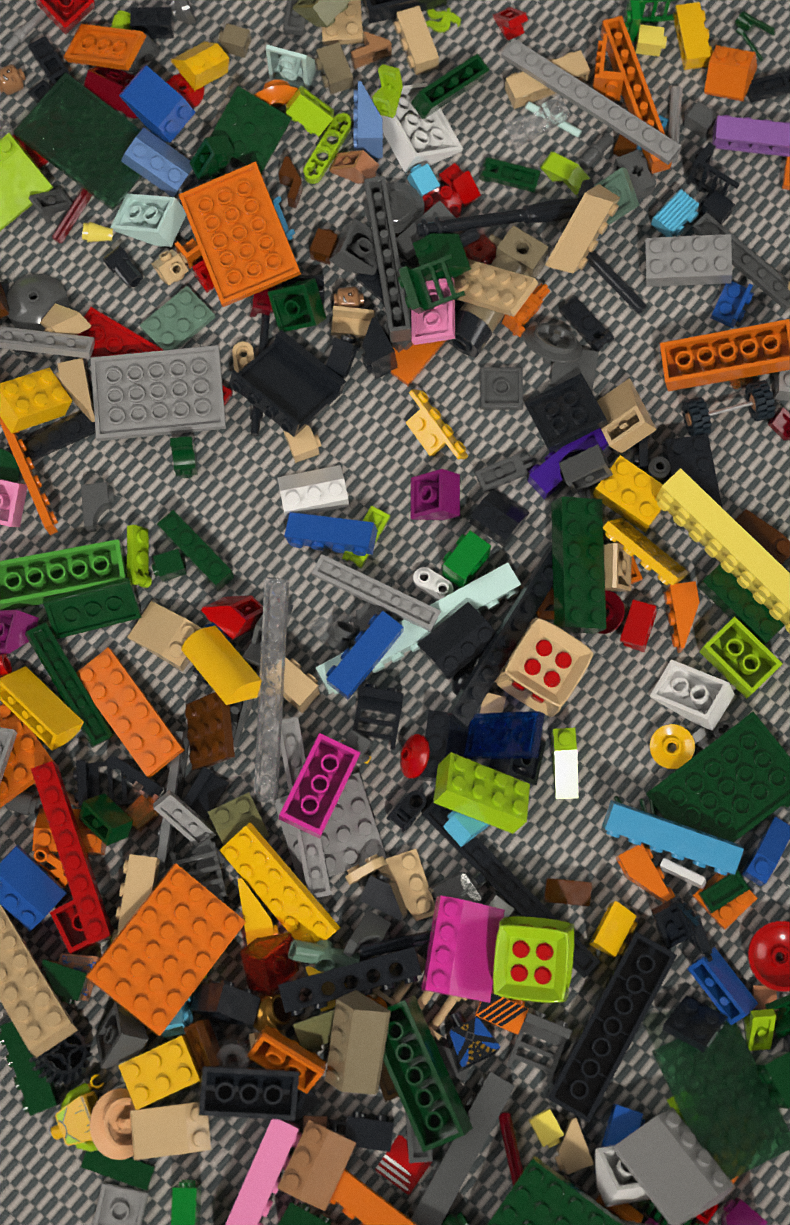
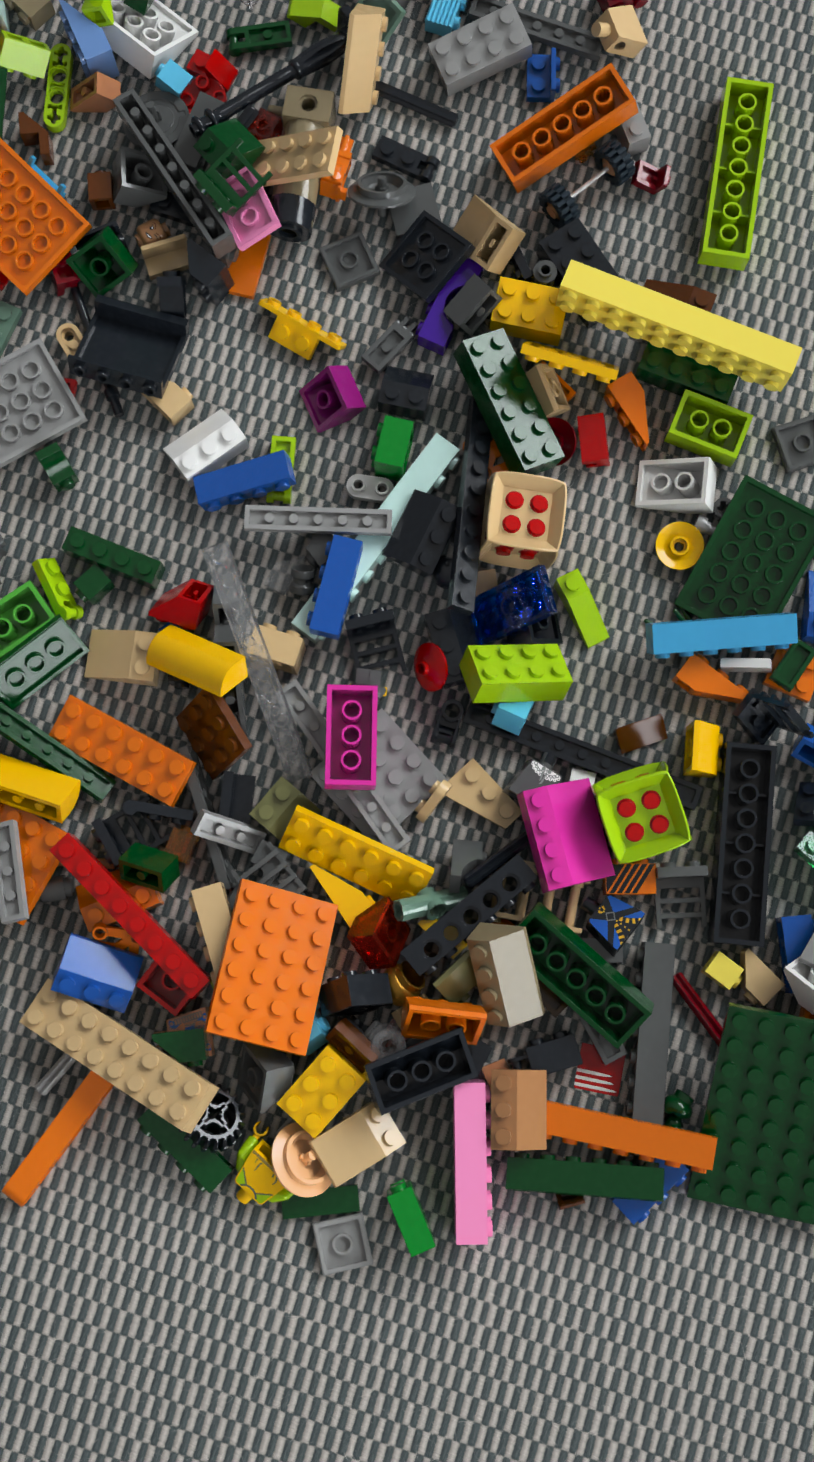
camera: 25 degrees left, 5 degrees up
(384, 895) = (463, 817): black slope -> none

